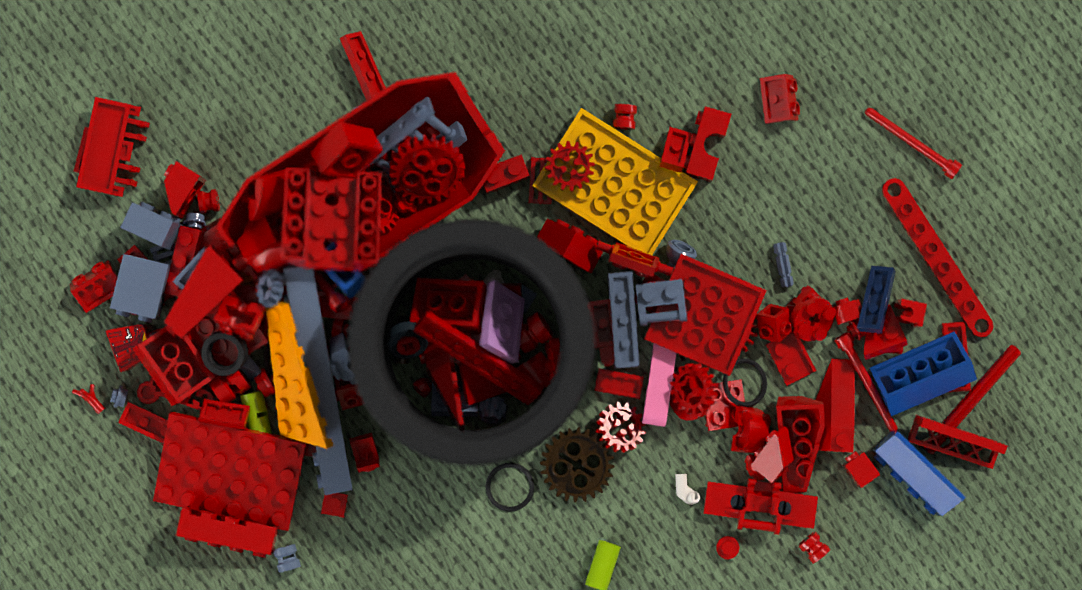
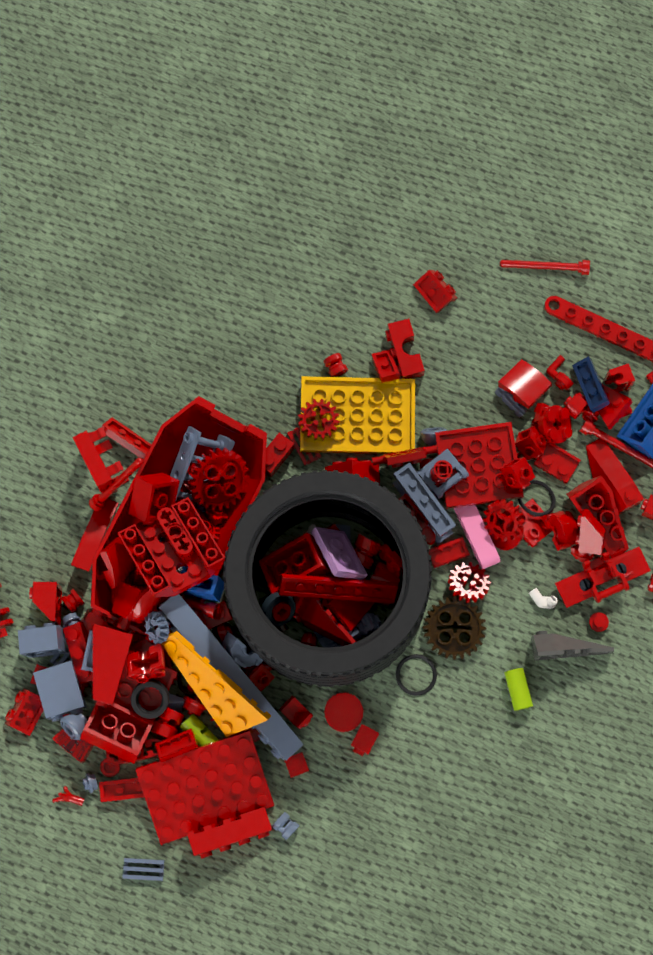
camera: 30 degrees left, 10 degrees down
(106, 503) = (139, 877): none -> sand blue tile
(134, 332) = (73, 725): none -> sand blue brick
(270, 145) = (93, 536): none -> red slope
(293, 113) = (98, 501): none -> red piece
(311, 91) = (91, 456): none -> red piece
(352, 187) = (175, 541): none -> red beam
(413, 480) = (343, 712): none -> red tile
(416, 522) = (364, 740): none -> red brick
(654, 300) = (438, 475): none -> red wheel
(667, 546) = (556, 646): none -> dark grey wedge
(737, 350) = (518, 473): none -> red brick
(809, 256) = (524, 383): none -> red slope
(849, 276) = (562, 380): none -> red plate

